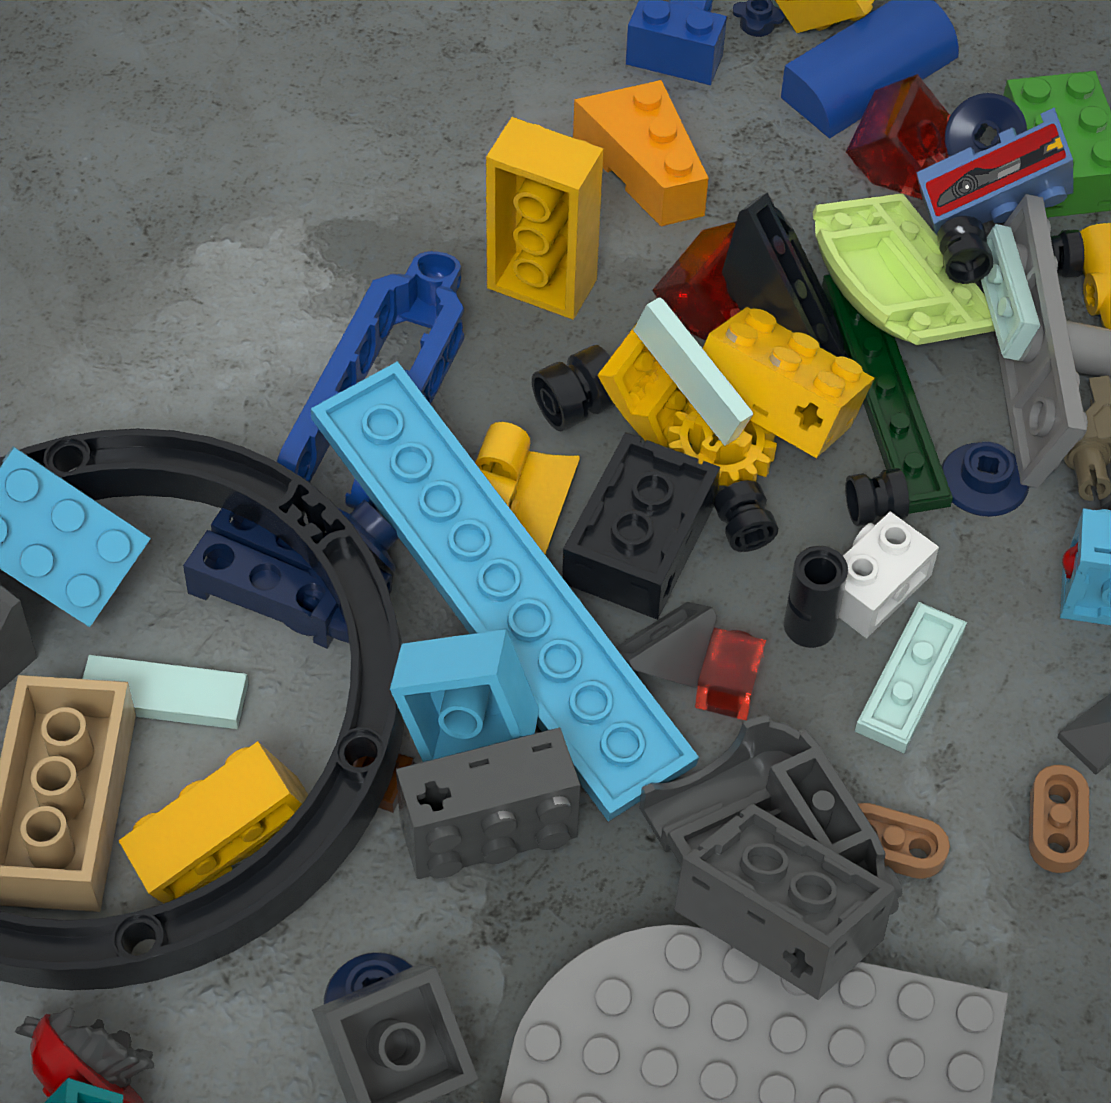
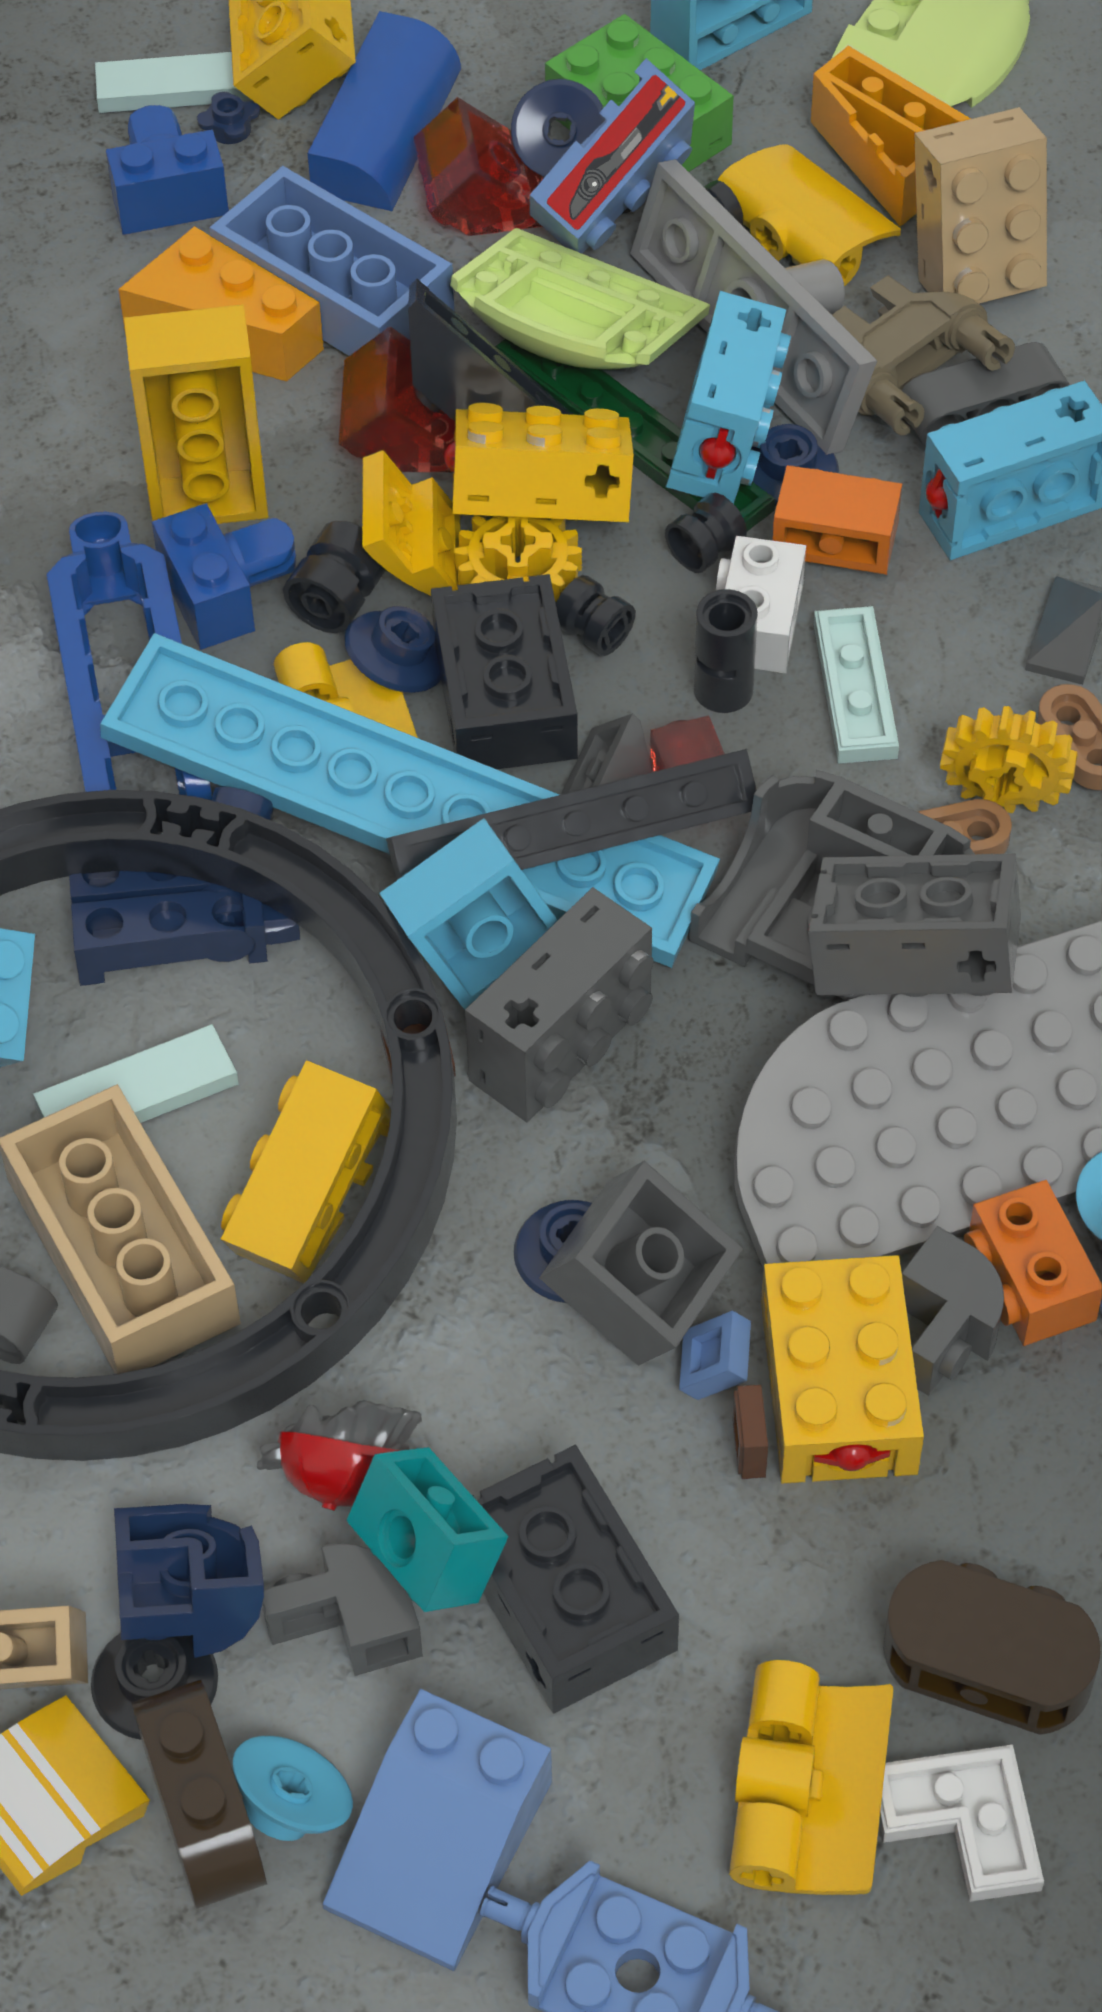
camera: 30 degrees left, 0 degrees up
(497, 339) = (215, 570): none -> blue brick
(565, 464) = (394, 649): none -> dark blue piece
(618, 672) = (600, 814): none -> black plate
(693, 371) = (460, 493): light aqua tile -> none
(745, 148) = (333, 255): none -> medium blue brick
(958, 401) = (730, 398): none -> medium azure piece
(965, 249) = (626, 250): black wheel -> none
(973, 805) = (1008, 759): none -> yellow gear
(983, 539) = (838, 514): none -> orange brick
(1009, 295) = (687, 262): light aqua tile -> none

